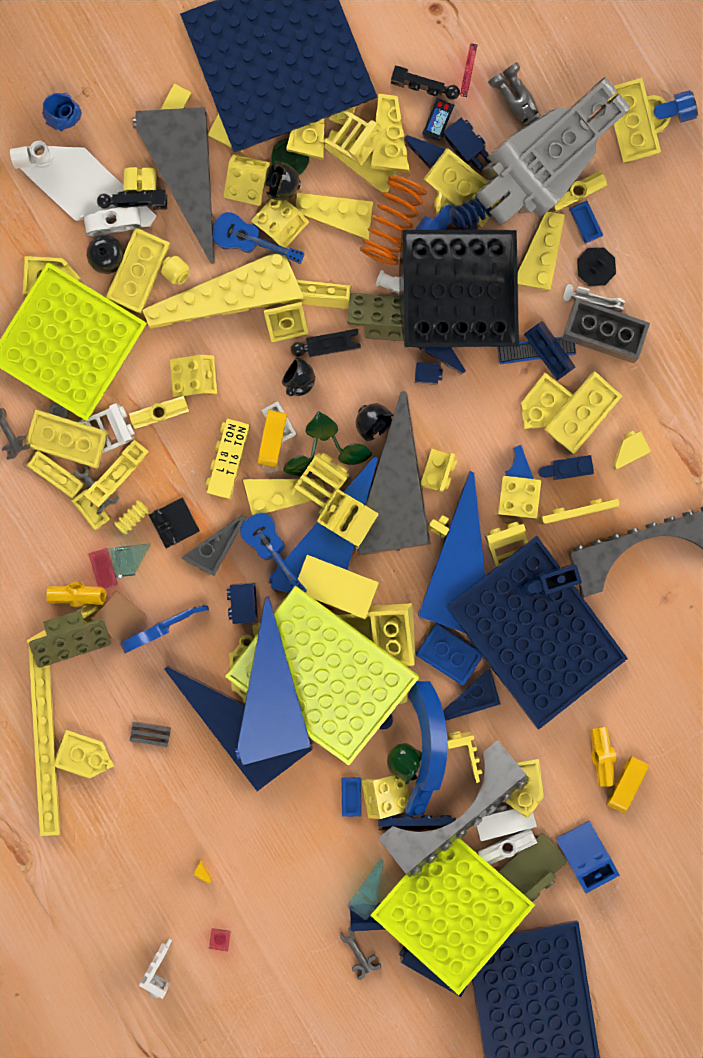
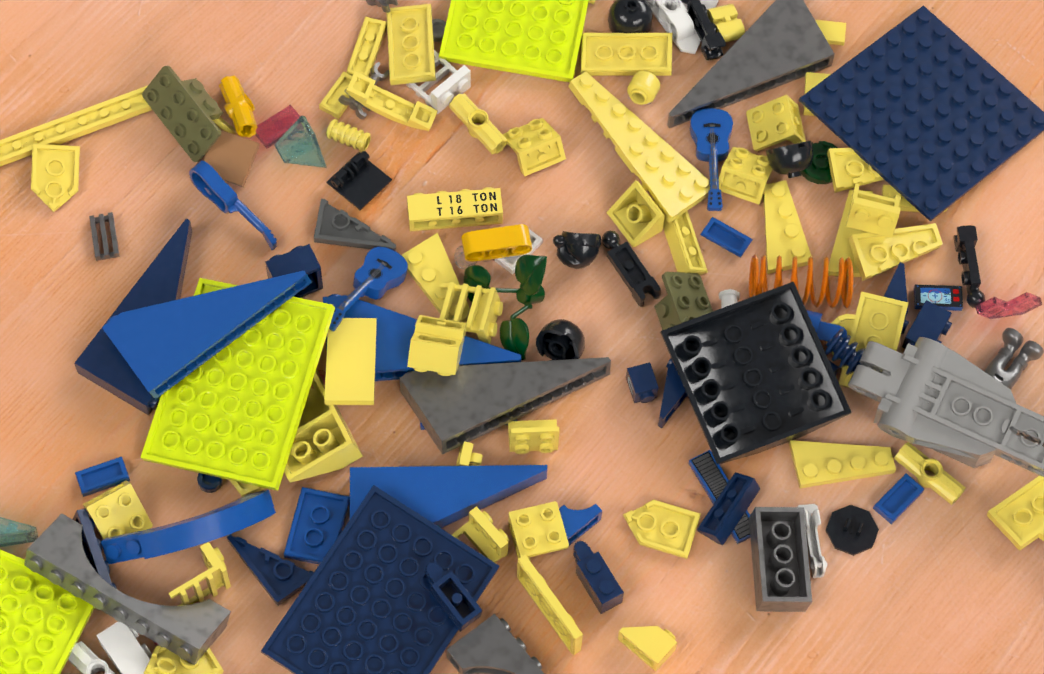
camera: 65 degrees right, 25 degrees down
(328, 259) = (726, 237): none -> blue tile
(404, 762) = (165, 510): dark green hair -> none
(583, 412) = (671, 574): light yellow tile -> none

